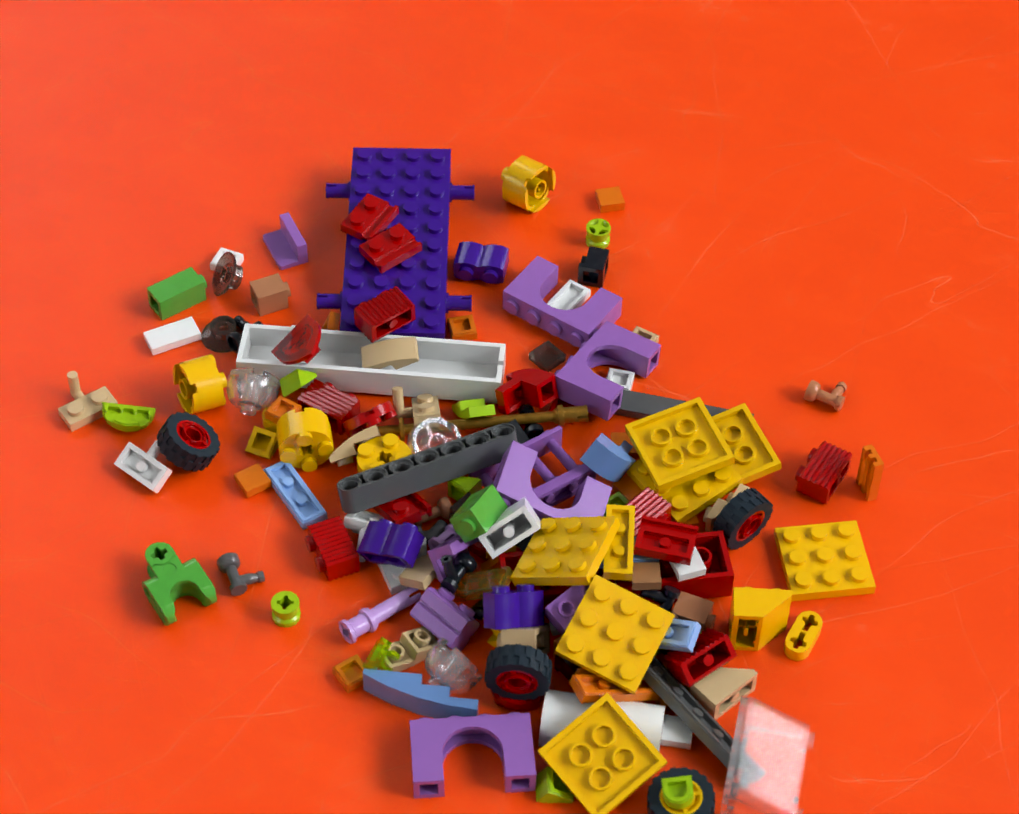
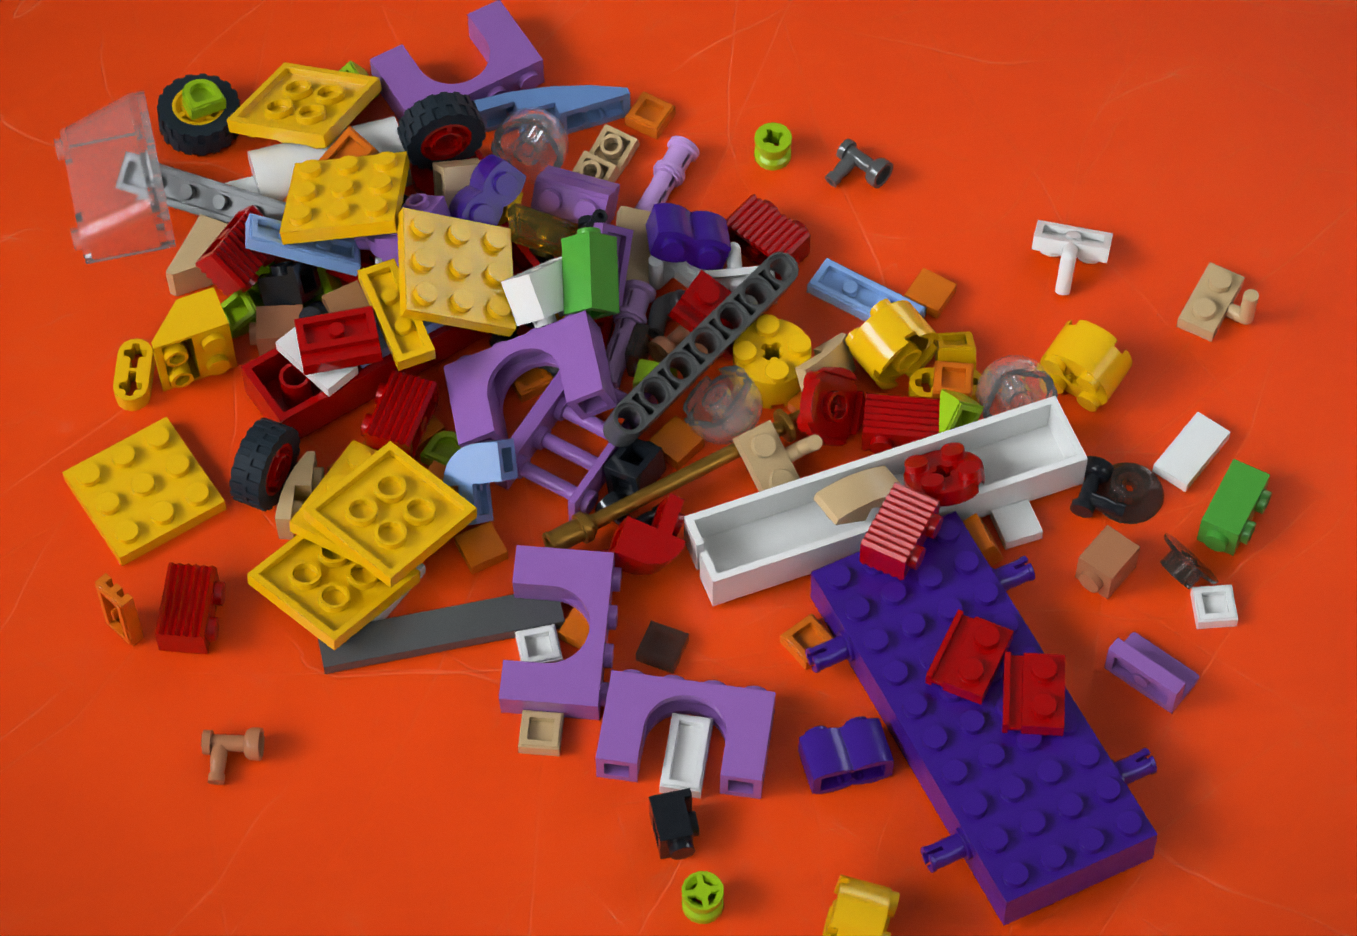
camera: 155 degrees right, 10 degrees up
(127, 417) = (1149, 301): lime plate -> none
(174, 579) = (927, 124): bright green piece -> none
(188, 441) = (1058, 283): black wheel -> none
(300, 343) = (981, 433): shield -> none
(345, 336) = (945, 474): none -> red plate
(378, 655) = (619, 114): clear neon green tile -> none
(473, 409) = (699, 479): lime slope -> none

